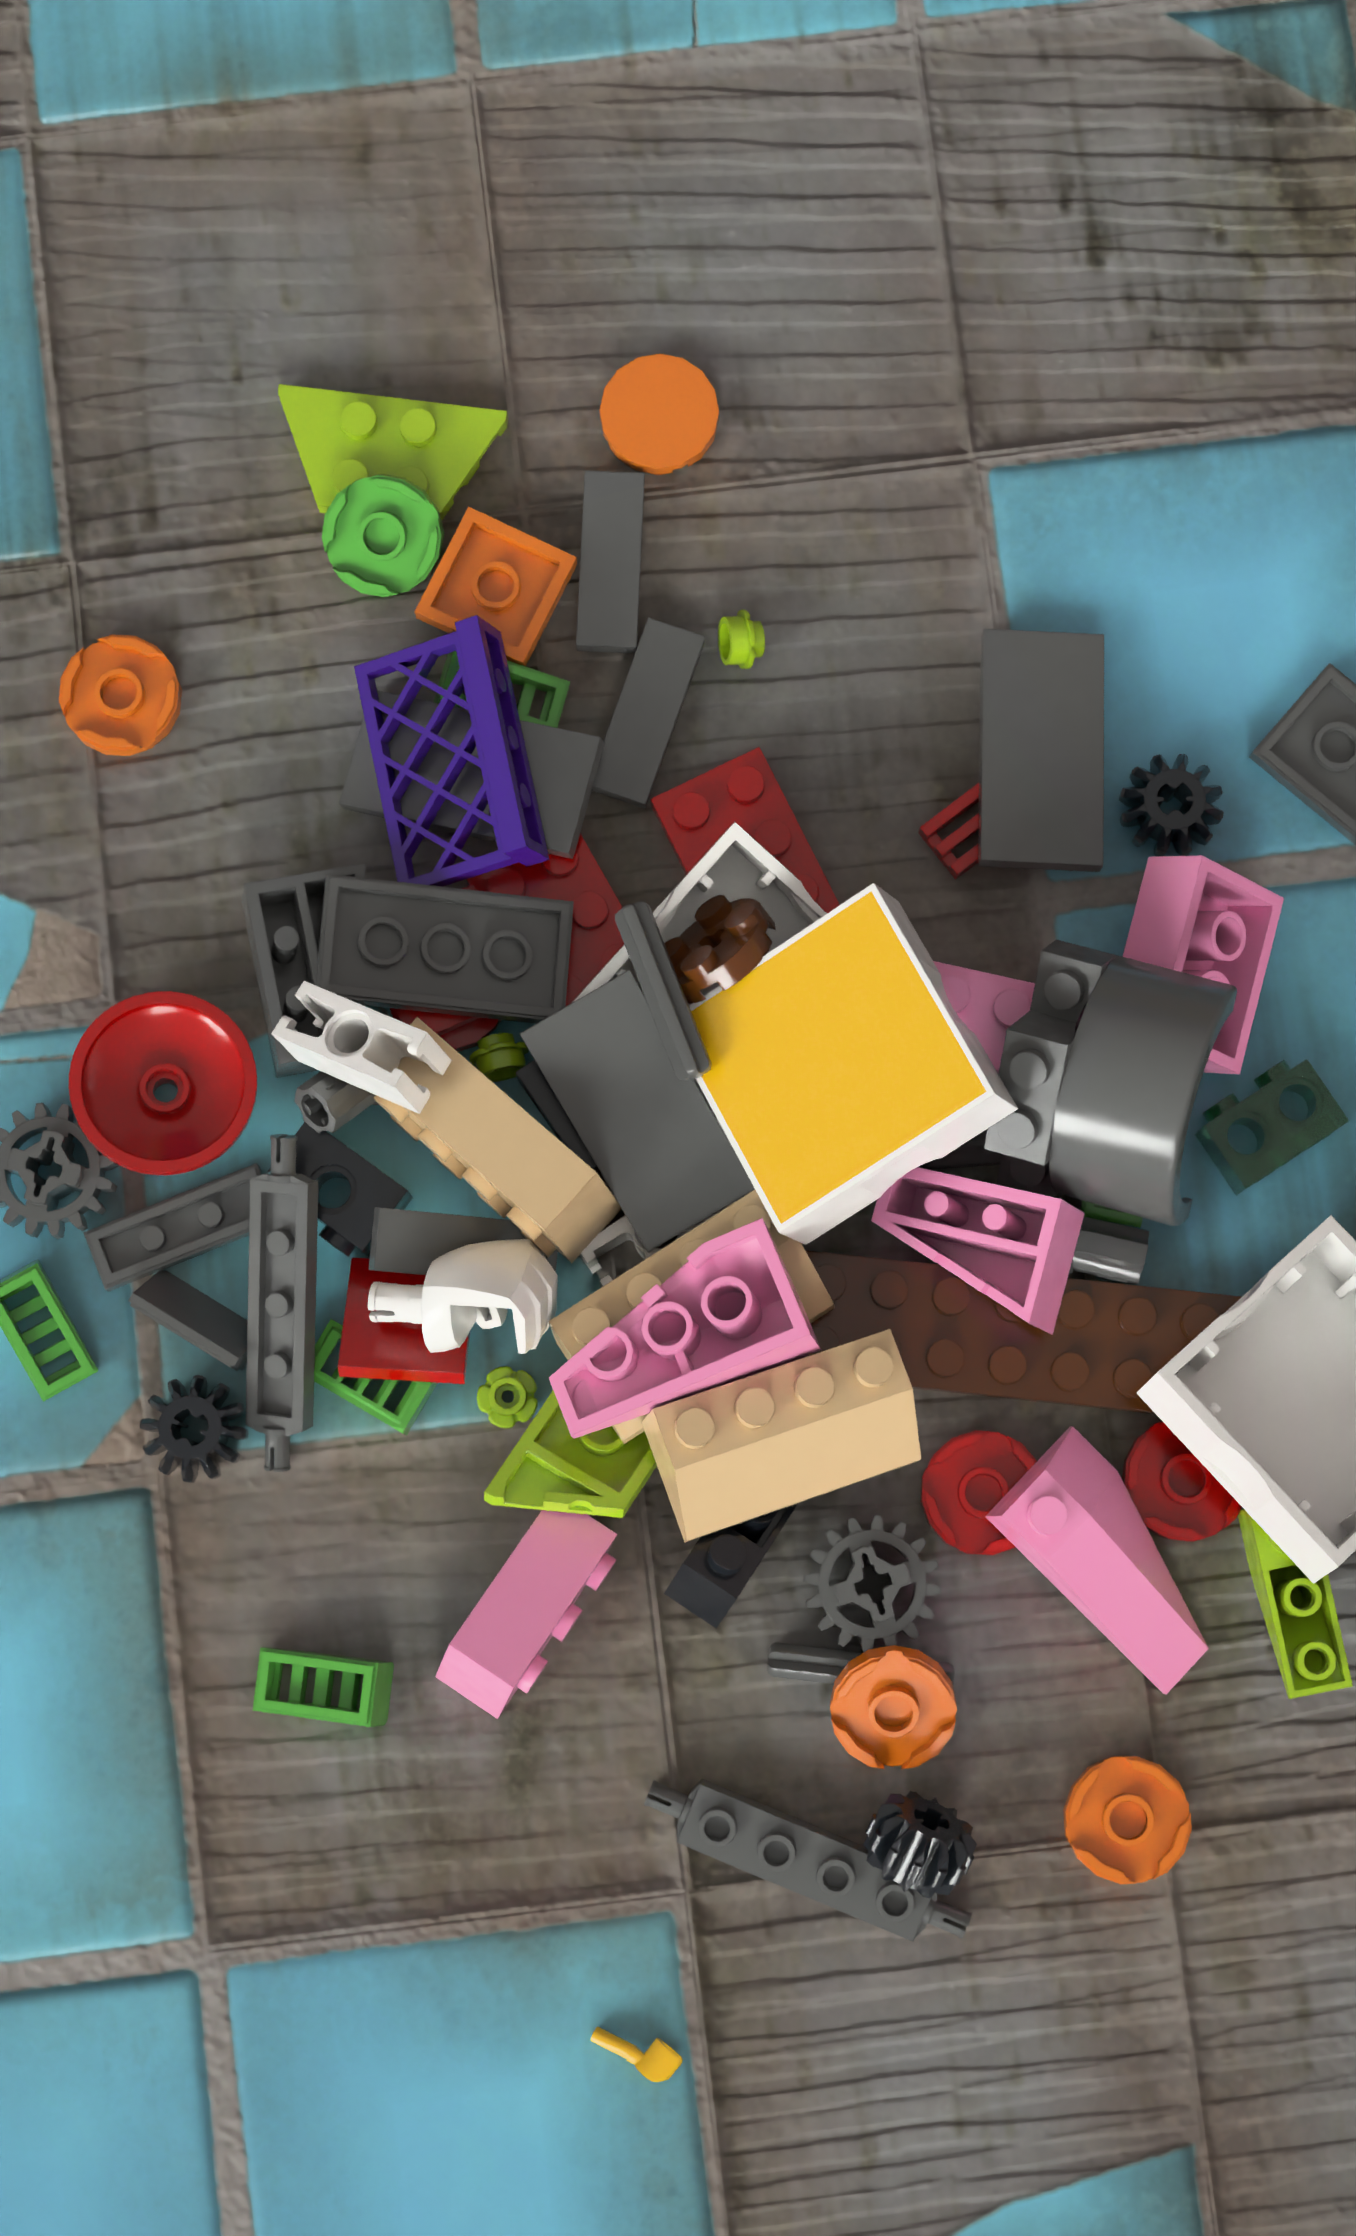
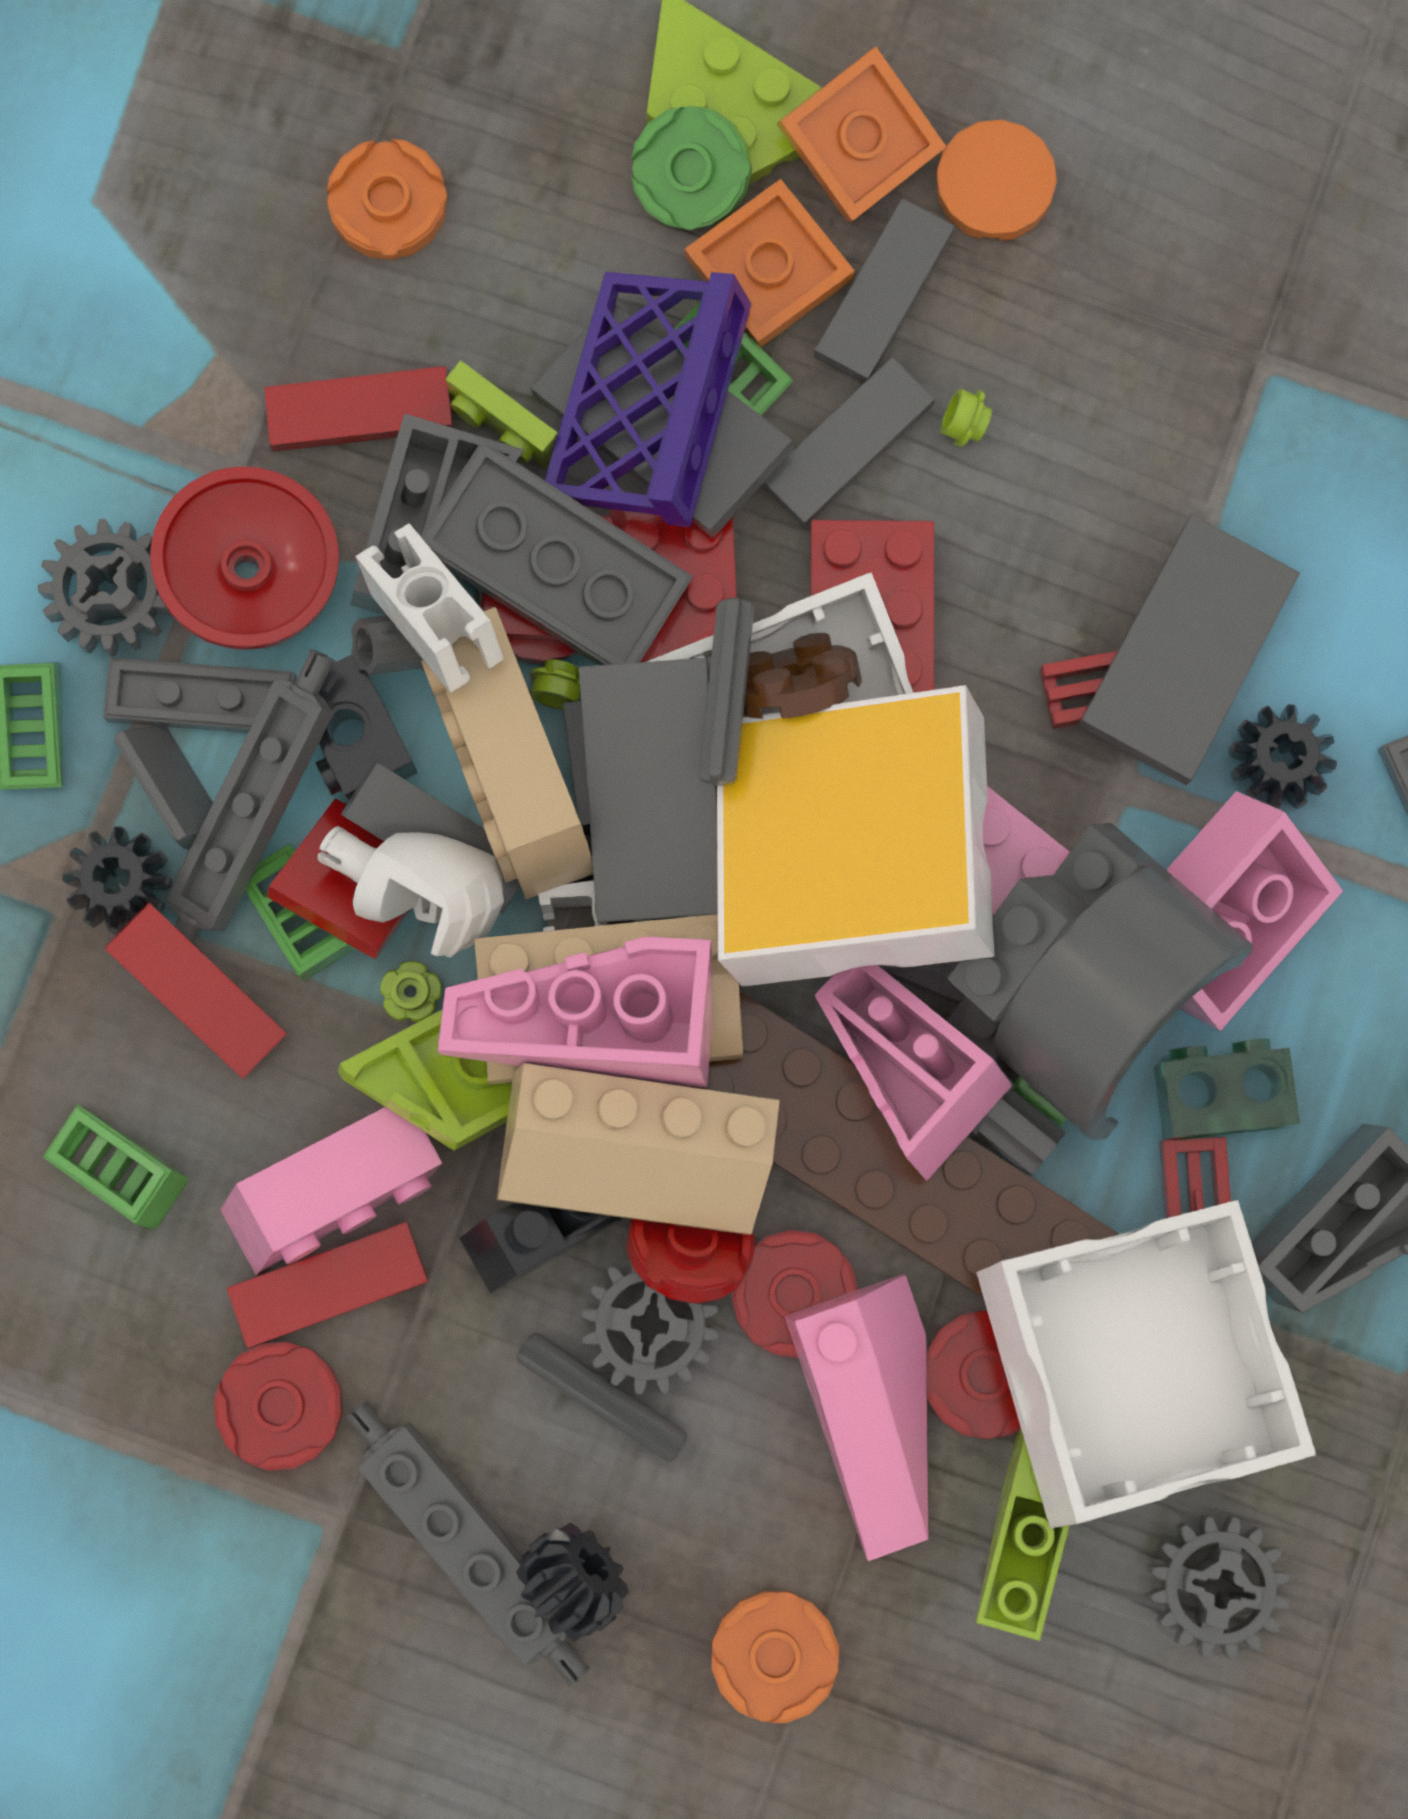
camera: 25 degrees right, 0 degrees up
(190, 898) = (354, 407): none -> red tile
(301, 837) = (482, 402): none -> lime plate
(316, 1492) = (195, 990): none -> red tile
(521, 432) = (861, 134): none -> orange plate
(567, 1694) = (327, 1285): none -> red tile
(578, 1823) = (278, 1406): none -> red tile
(655, 2064) = (237, 1656): yellow hand -> none
(878, 1510) = (688, 1261): none -> red tile
(893, 1707) = (612, 1446): orange tile -> none
(1257, 1222) = (1192, 1151): none -> red tile

